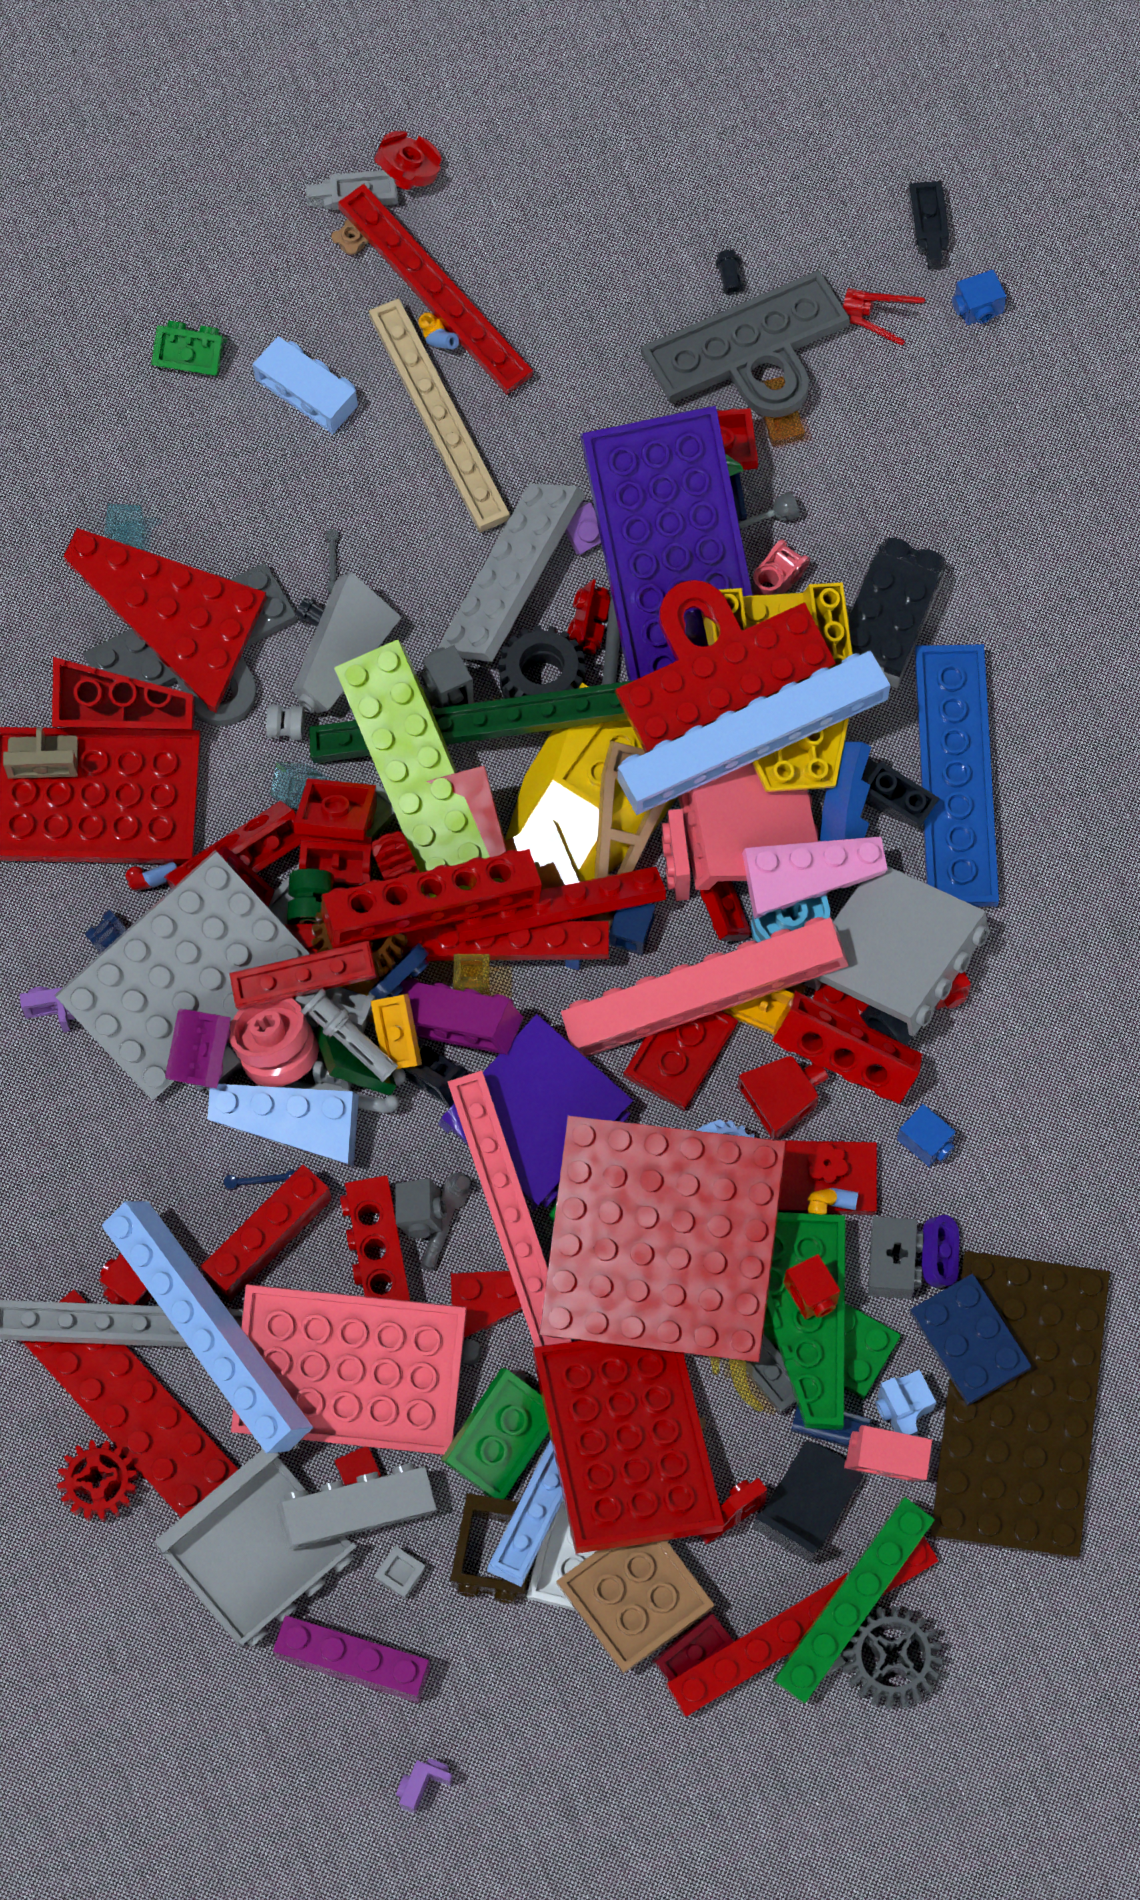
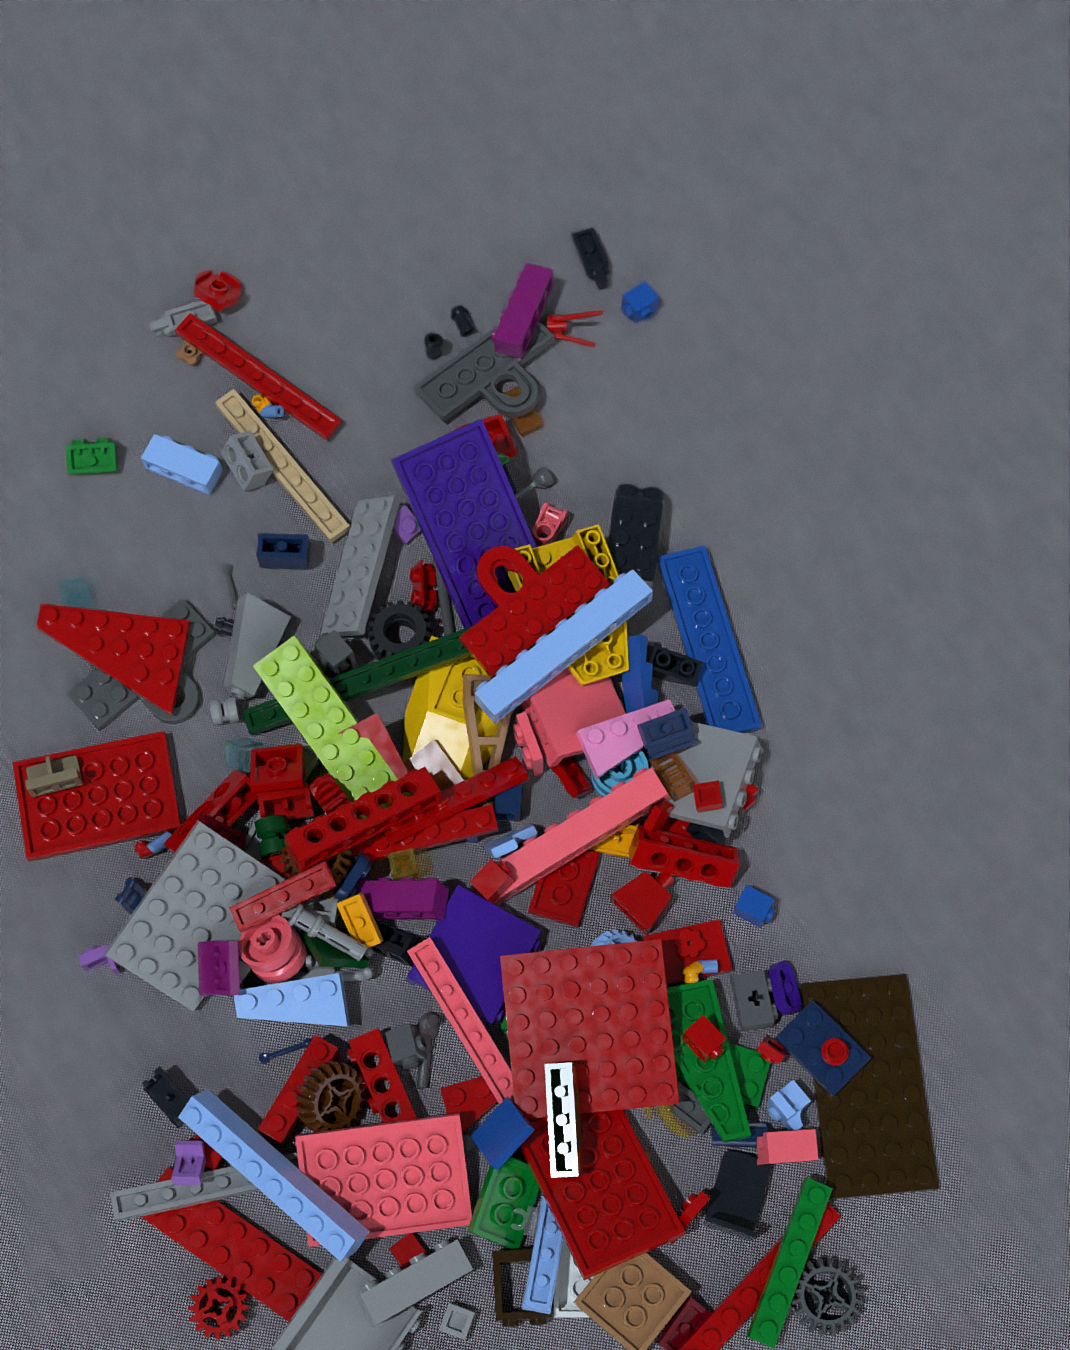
camera: 15 degrees left, 0 degrees up
(92, 1198) = (166, 1095): none -> black hinge
(102, 1286) = (189, 1163): none -> medium lavender bracket
(113, 701) = (89, 725): red wedge -> none
(292, 1244) = (322, 1097): none -> reddish brown gear
(393, 398) = (247, 460): none -> light grey brick
(413, 528) = (283, 551): none -> dark blue brick
(516, 1345) = (502, 1133): none -> blue tile
(525, 1466) = (530, 1220): none -> clear tile
(584, 1019) = (493, 880): none -> red brick
(600, 1343) = (564, 1120): none -> brick
(621, 976) = (509, 841): none -> light blue tile
(681, 294) = (433, 343): none -> black pin
(815, 274) = (523, 310): none -> magenta brick
(824, 985) = (658, 816): none -> red tile
(864, 879) = (667, 733): none -> dark blue plate
(866, 956) = (679, 790): none -> clear orange slope
(897, 973) = (707, 796): none -> red plate
(901, 1327) = (771, 1050): none -> red plate
(983, 1345) = (834, 1051): none -> red plate

